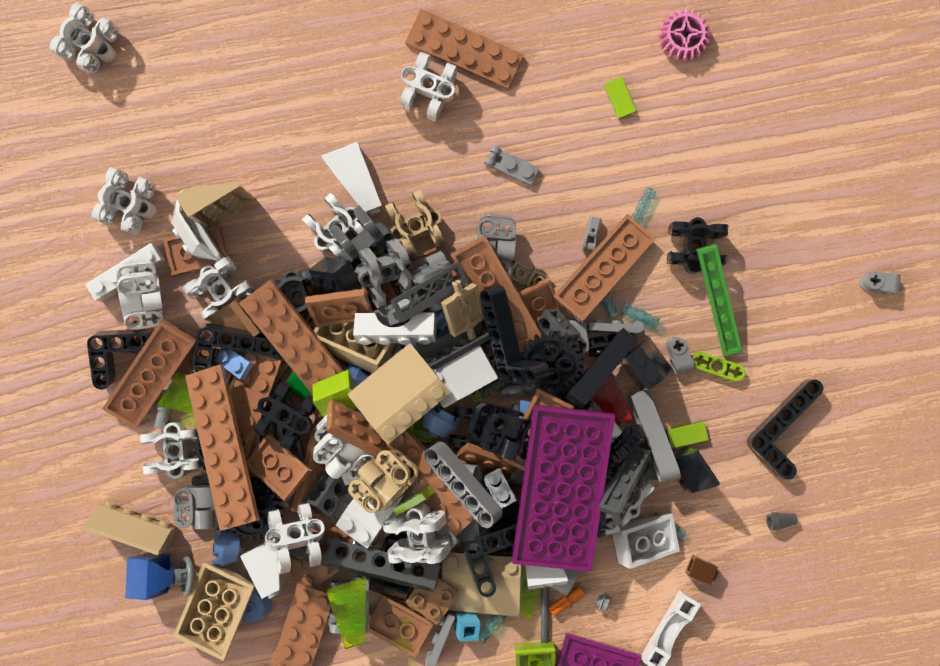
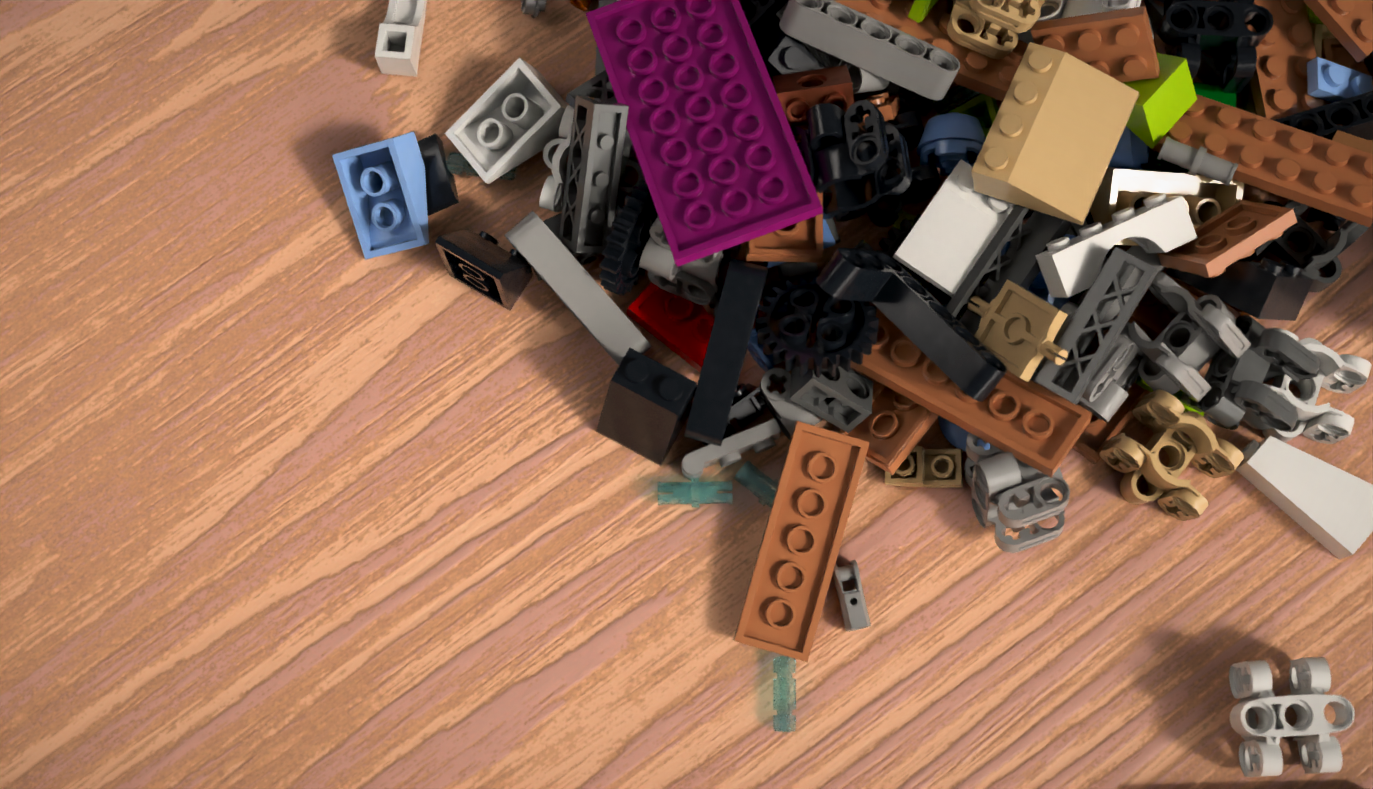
camera: 150 degrees right, 10 degrees down
(332, 351) = (1197, 161): none -> light grey pin
(503, 471) = (808, 88): none -> copper brick
(511, 166) = (1054, 652): light grey plate -> none
(679, 358) = (590, 451): light grey piece -> none
(687, 434) = (518, 328): lime tile -> none
(689, 232) = (660, 684): black piece -> none
(696, 528) = (440, 182): none -> black slope
(702, 570) = (392, 117): reddish brown brick -> none
(705, 357) = (491, 480): lime beam -> none
(719, 299) = (574, 575): bright green plate -> none
(723, 532) = (386, 194): none -> light blue slope
(778, 521) = (293, 259): dark grey cone -> none
(781, 425) = (360, 418): black beam -> none
(882, 283) = (280, 759): light grey piece -> none

